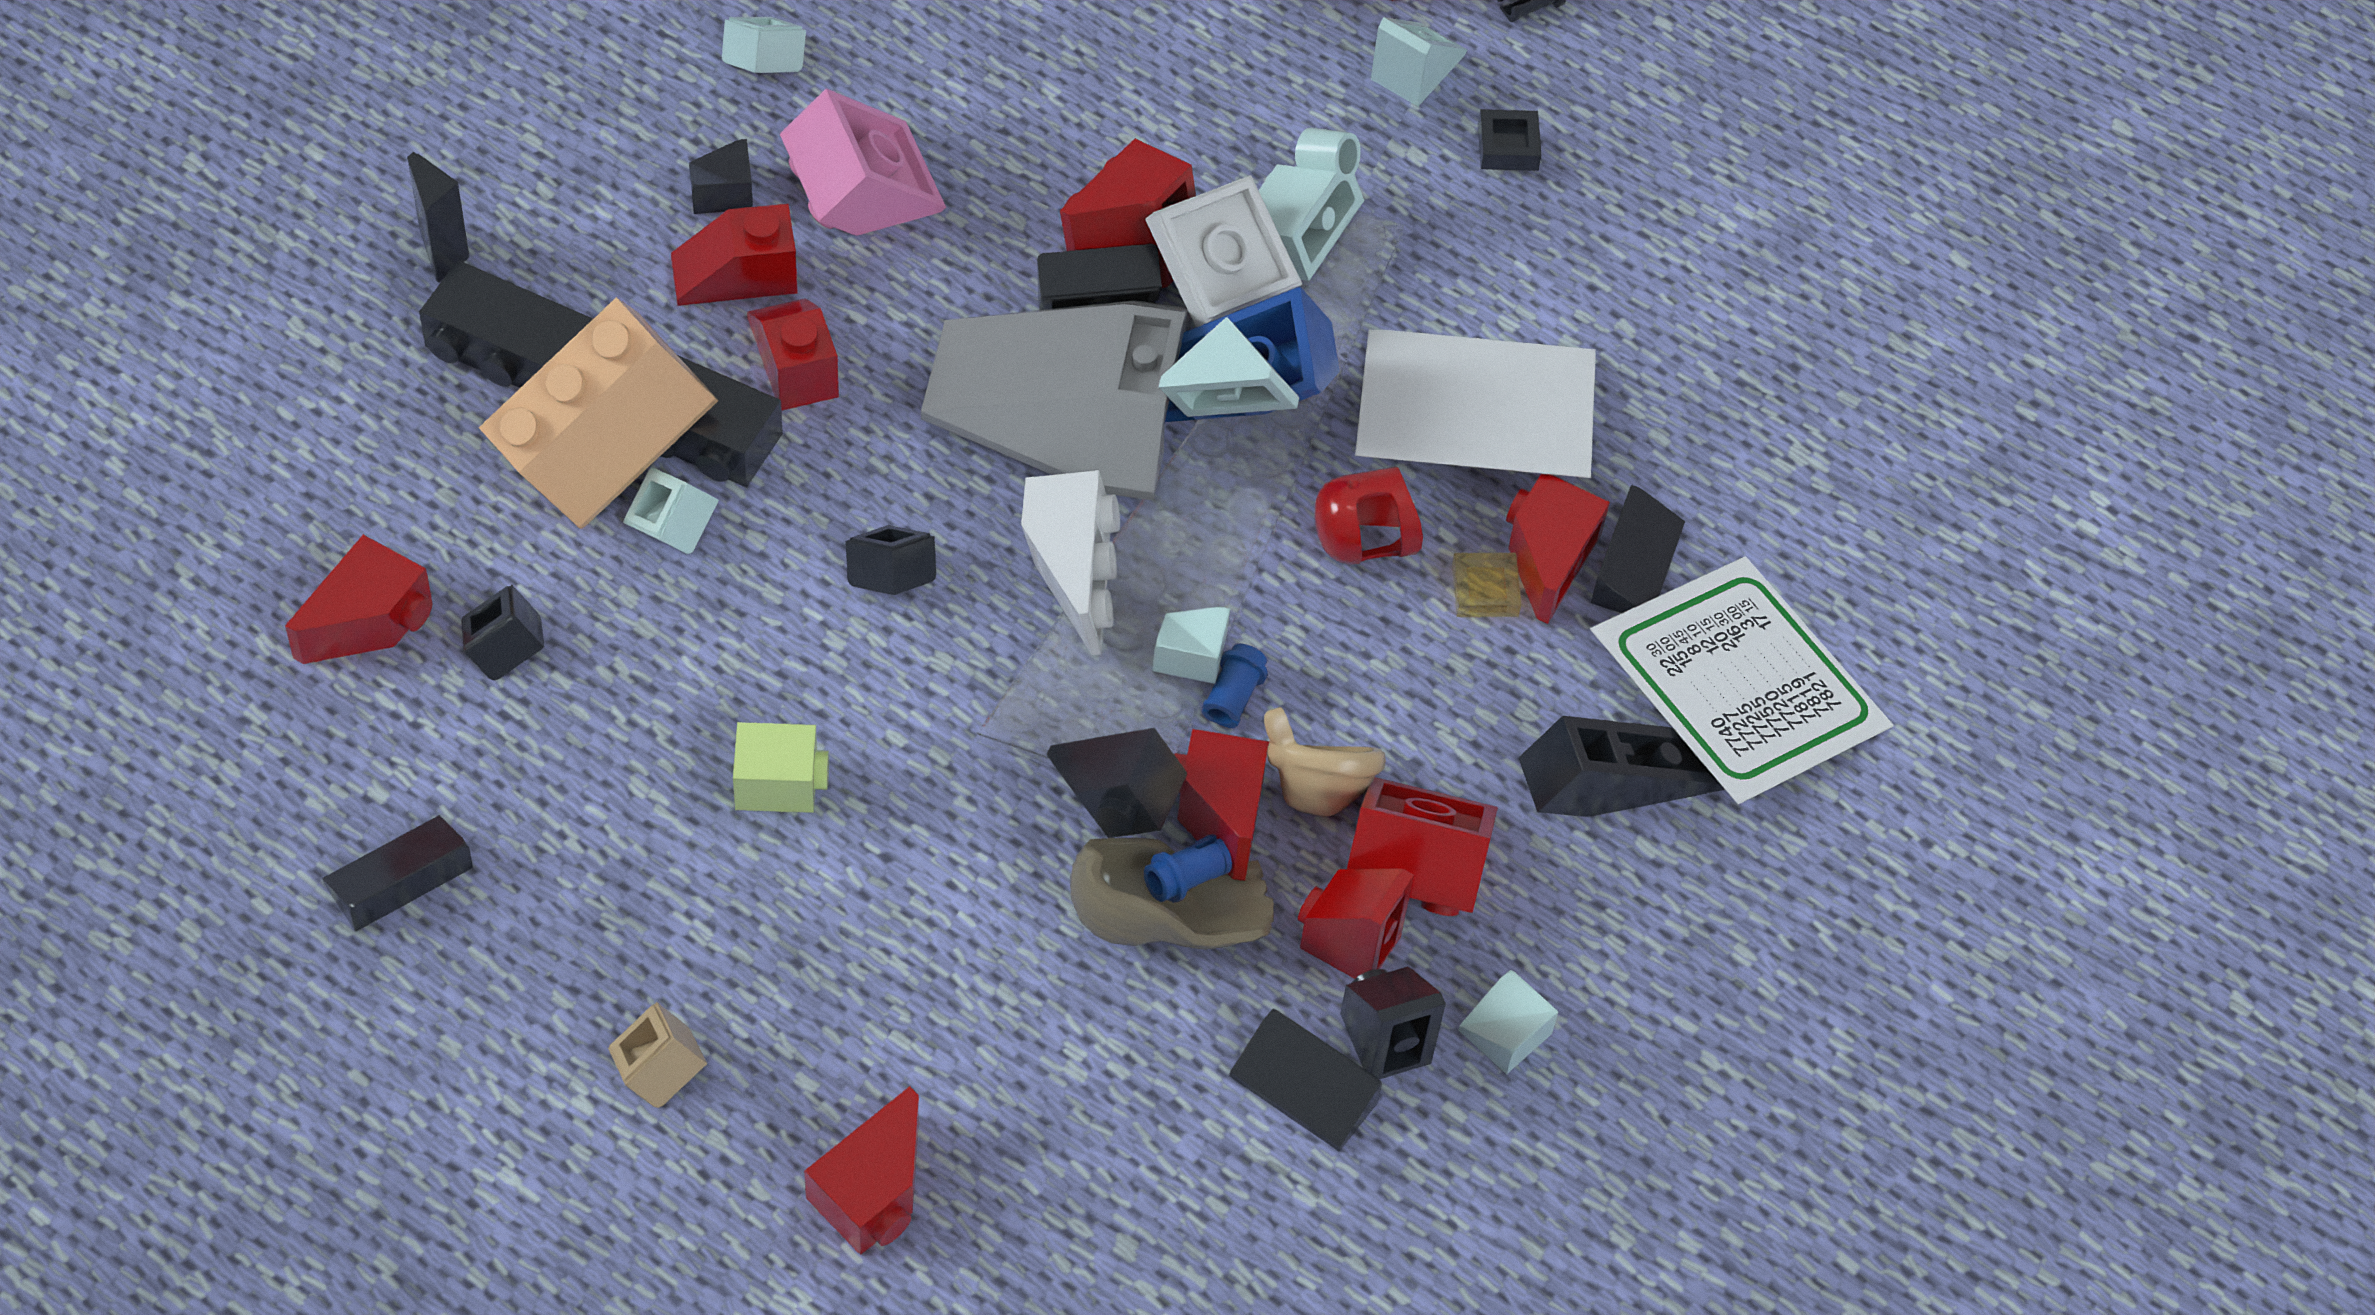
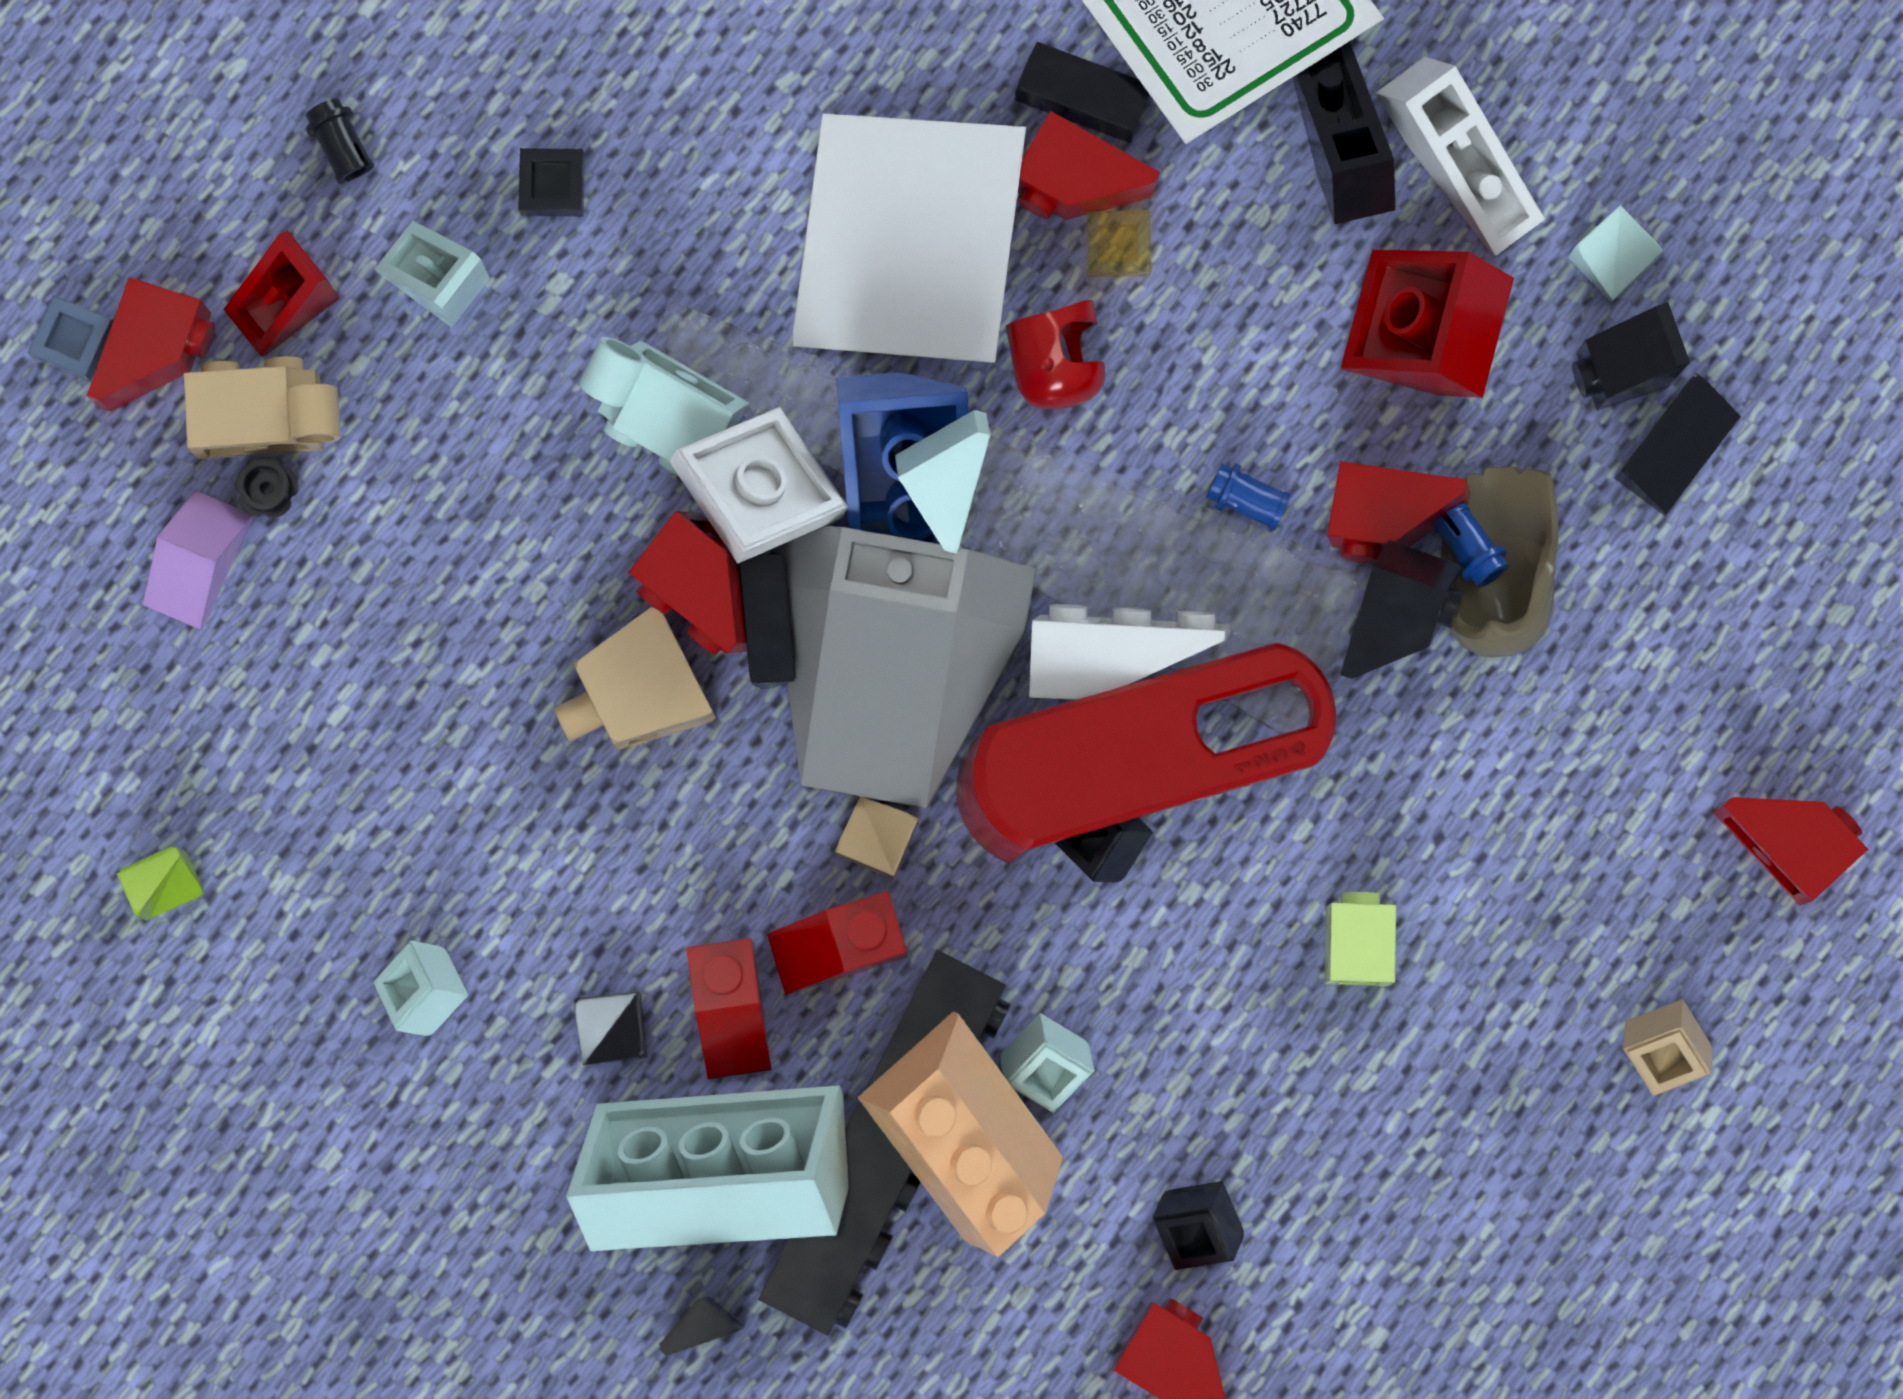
camera: 85 degrees left, 25 degrees up
(399, 872) = (1471, 1310): black slope -> none
(579, 223) = (712, 1169): none -> light aqua slope
(859, 166) = (602, 875): bright pink slope -> none
(891, 379) = (877, 837): none -> tan slope
(970, 557) = (1131, 753): none -> red piece
(1027, 189) = (636, 687): none -> tan torso
(1192, 643) = (1223, 533): light aqua slope -> none
(1319, 777) = (1353, 407): tan hat -> none
(1356, 918) = (1528, 387): red slope -> none
(1602, 875) = (1460, 151): none -> white slope

